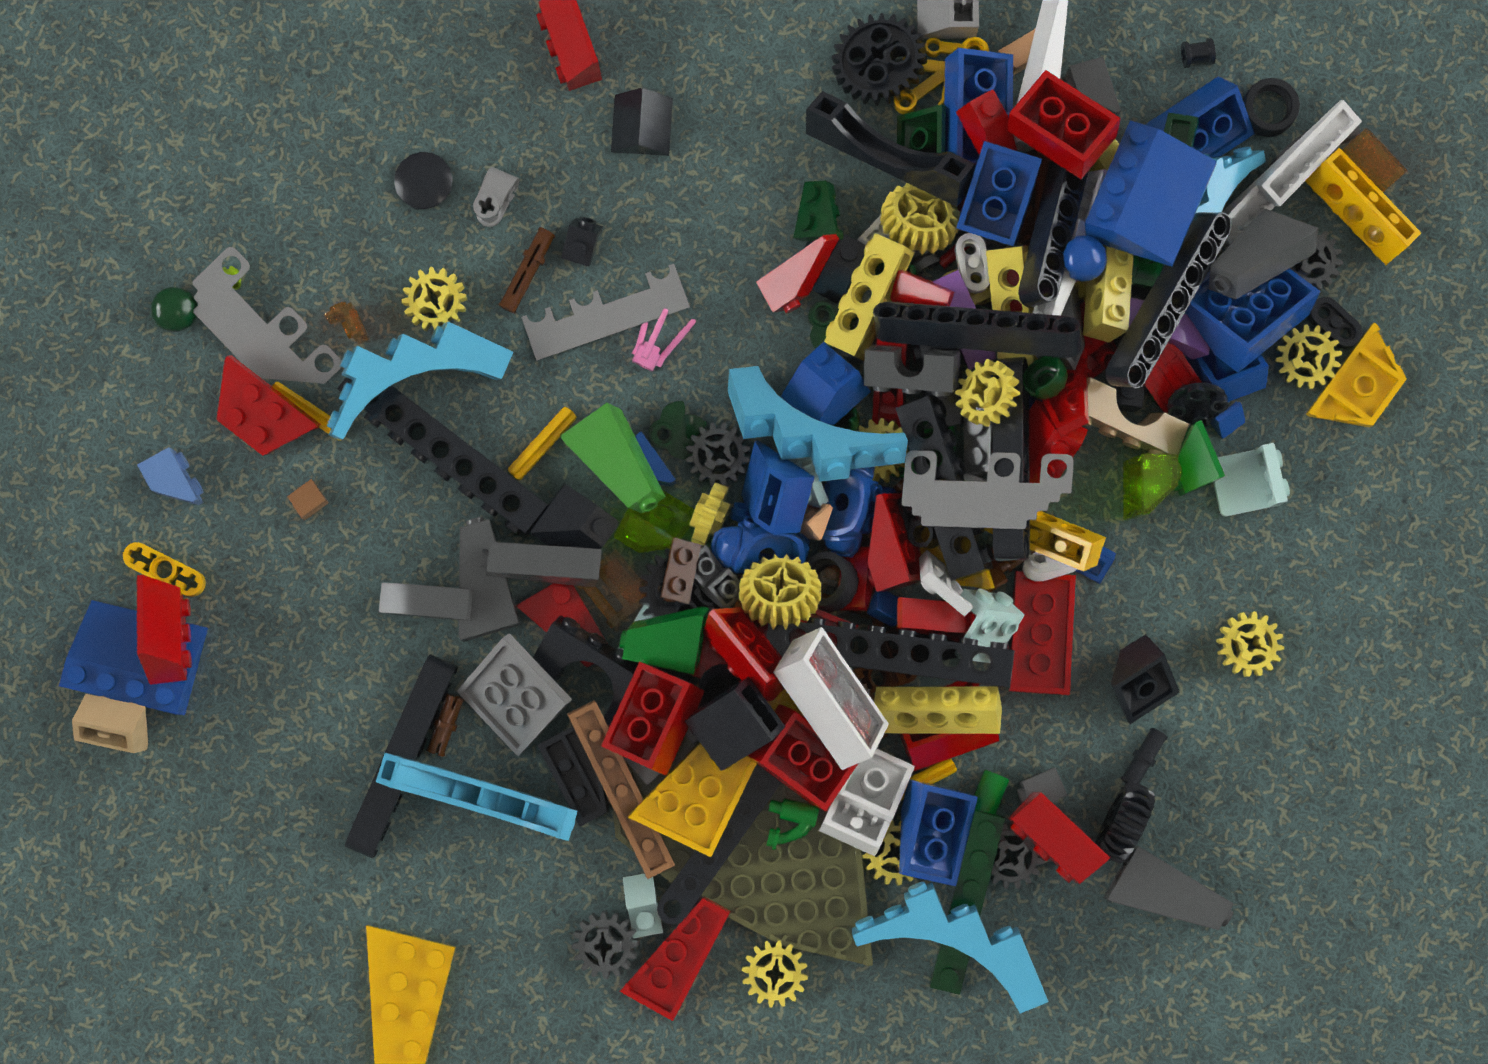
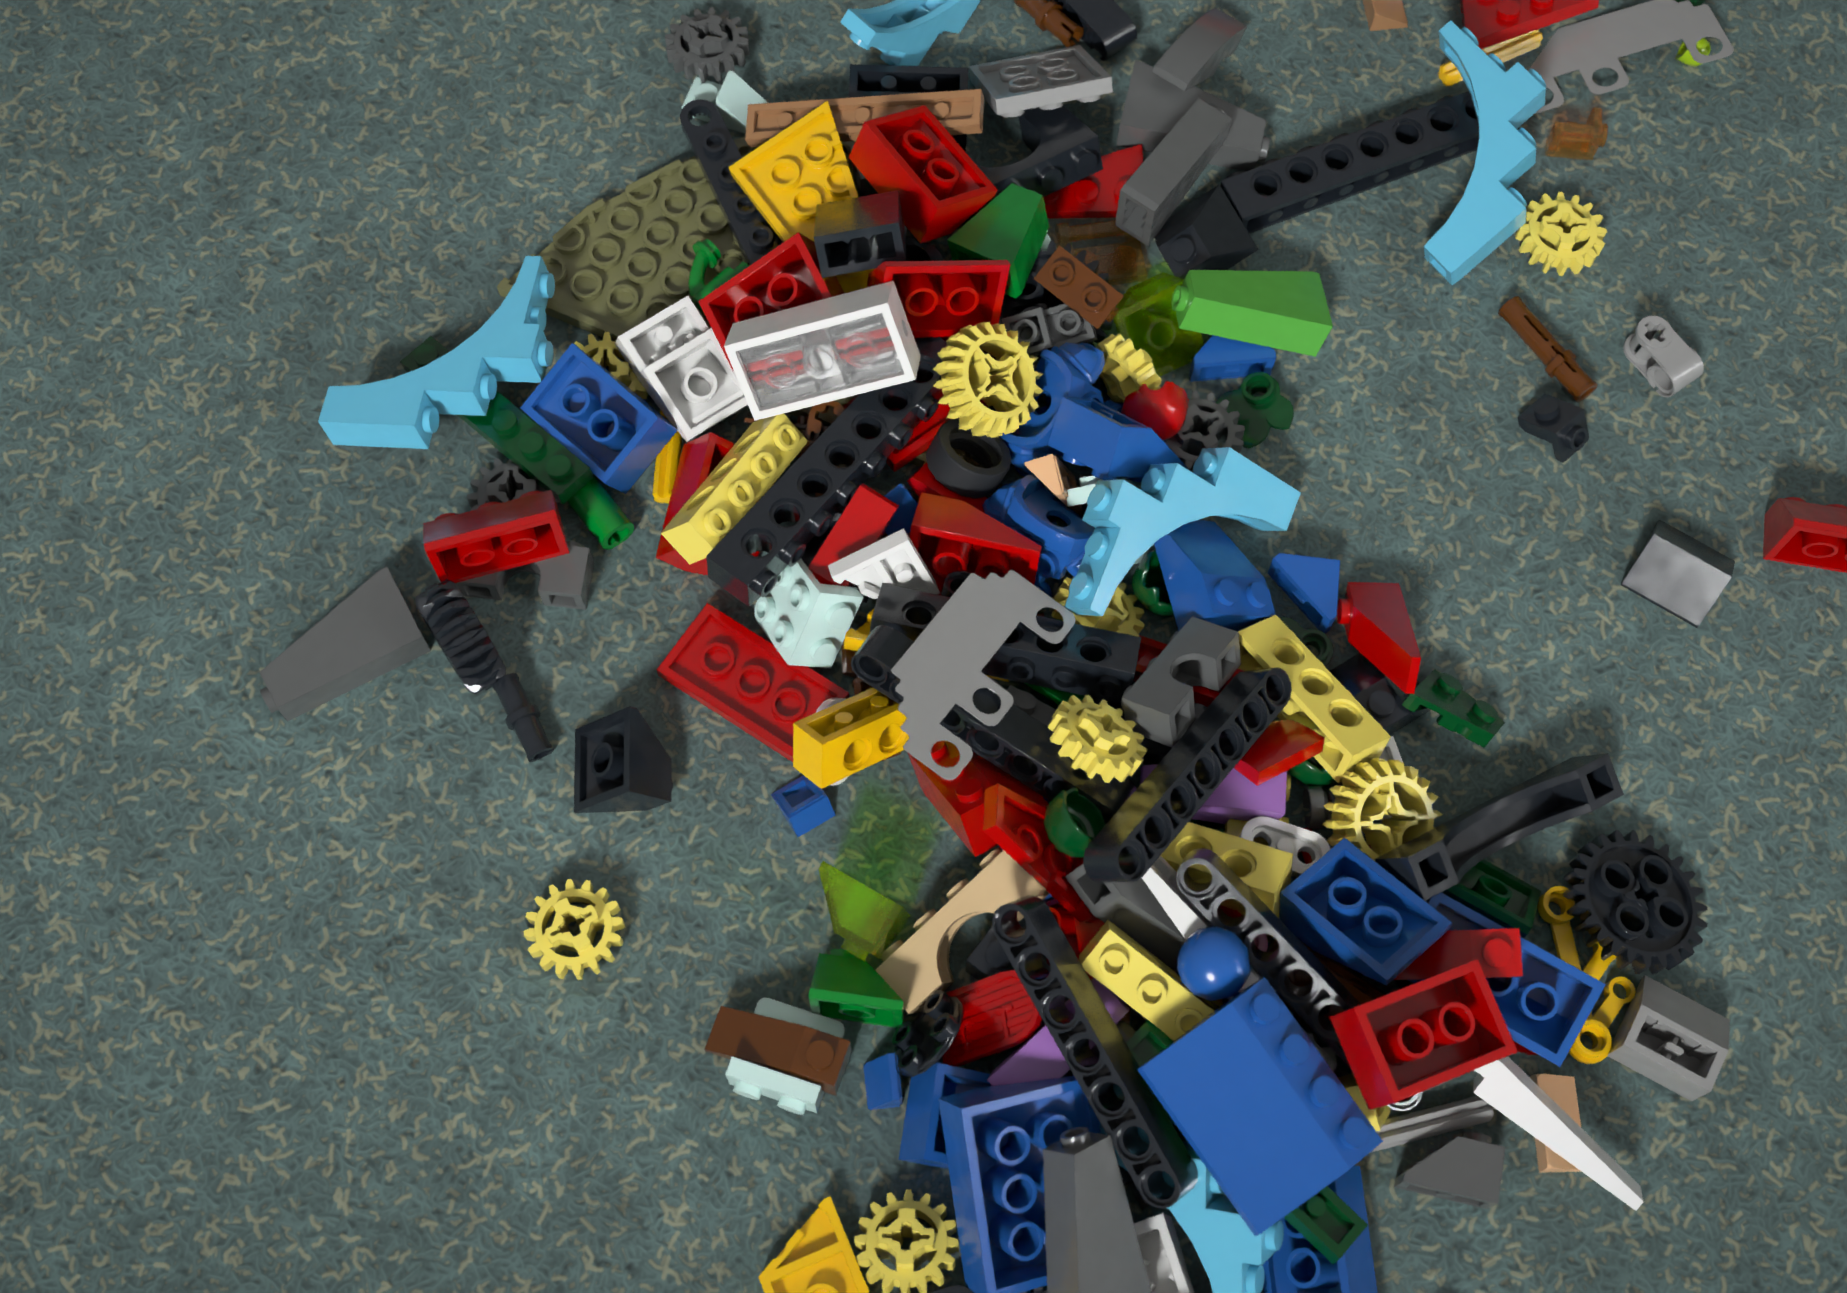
camera: 120 degrees right, 15 degrees down
(423, 180) = (1720, 297): black dish -> none
(542, 443) = (1320, 262): yellow axle -> none
(601, 320) = (1440, 400): light grey piece -> none
(648, 354) = (1370, 425): bright pink plant -> none
(673, 967) = (640, 102): red wing -> none
(737, 479) = (1158, 409): none -> red hair
(760, 972) = (559, 187): light yellow gear -> none
(783, 332) = (1310, 584): none -> blue slope
(1249, 483) = (780, 1047): none -> reddish brown slope

